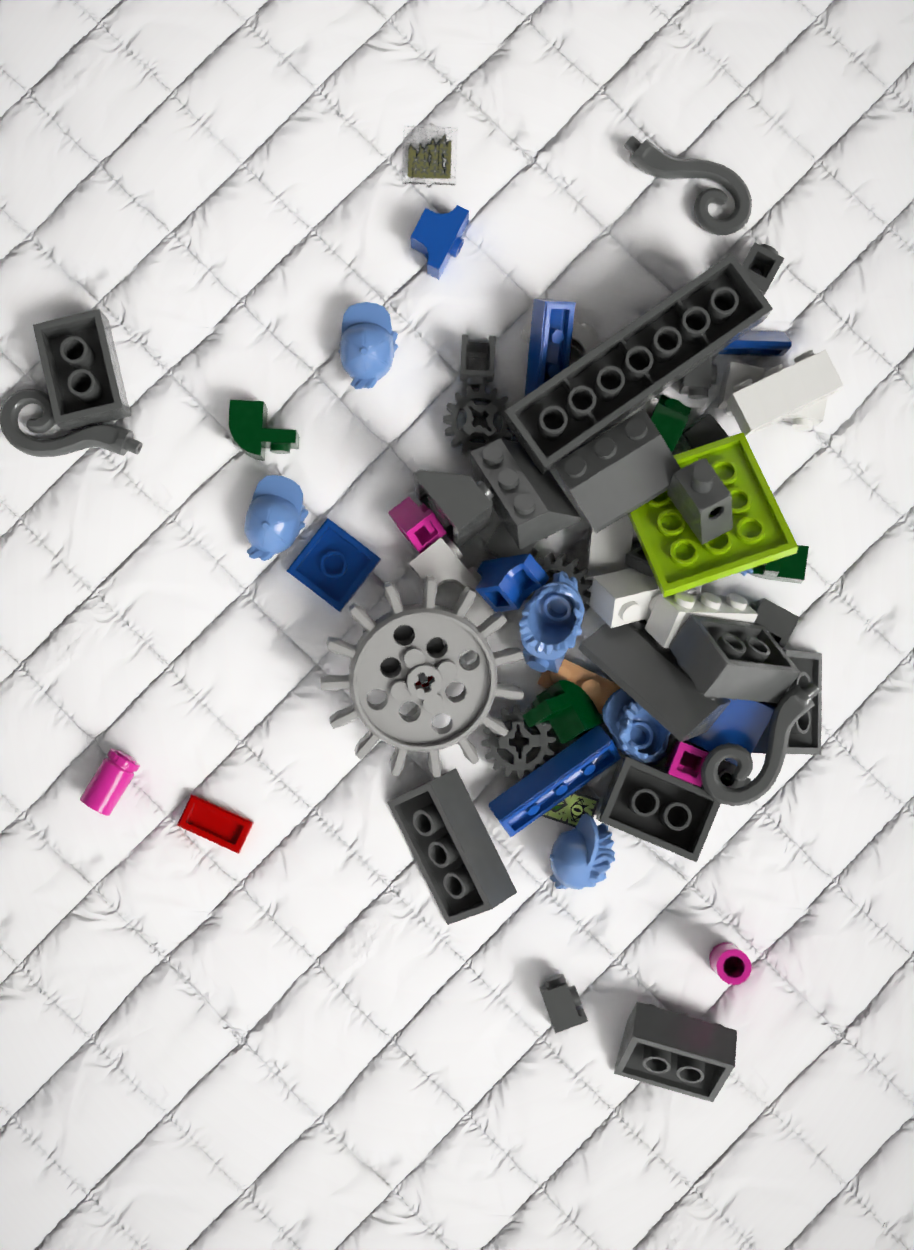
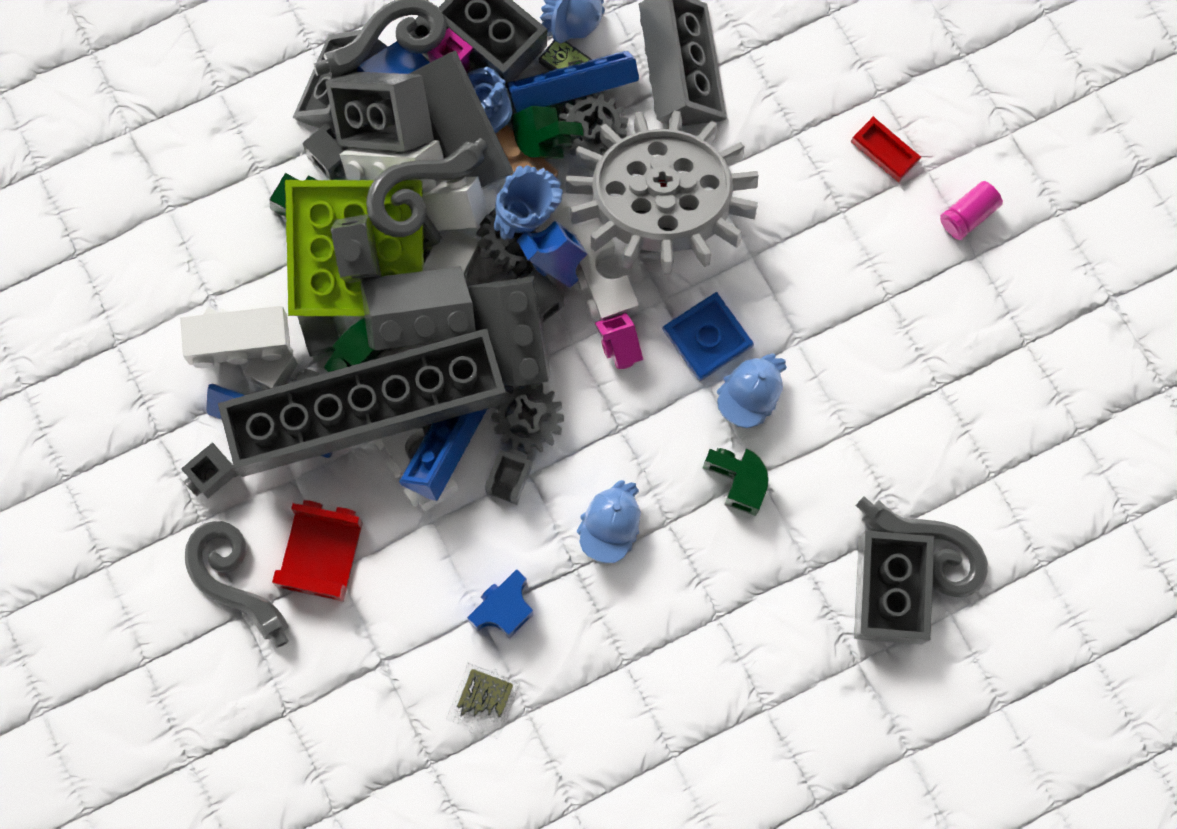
camera: 160 degrees left, 10 degrees down
(456, 501) = (580, 326): dark grey slope -> none
(627, 232) = (319, 551): none -> red panel
(634, 624) = (458, 164): none -> dark grey plant

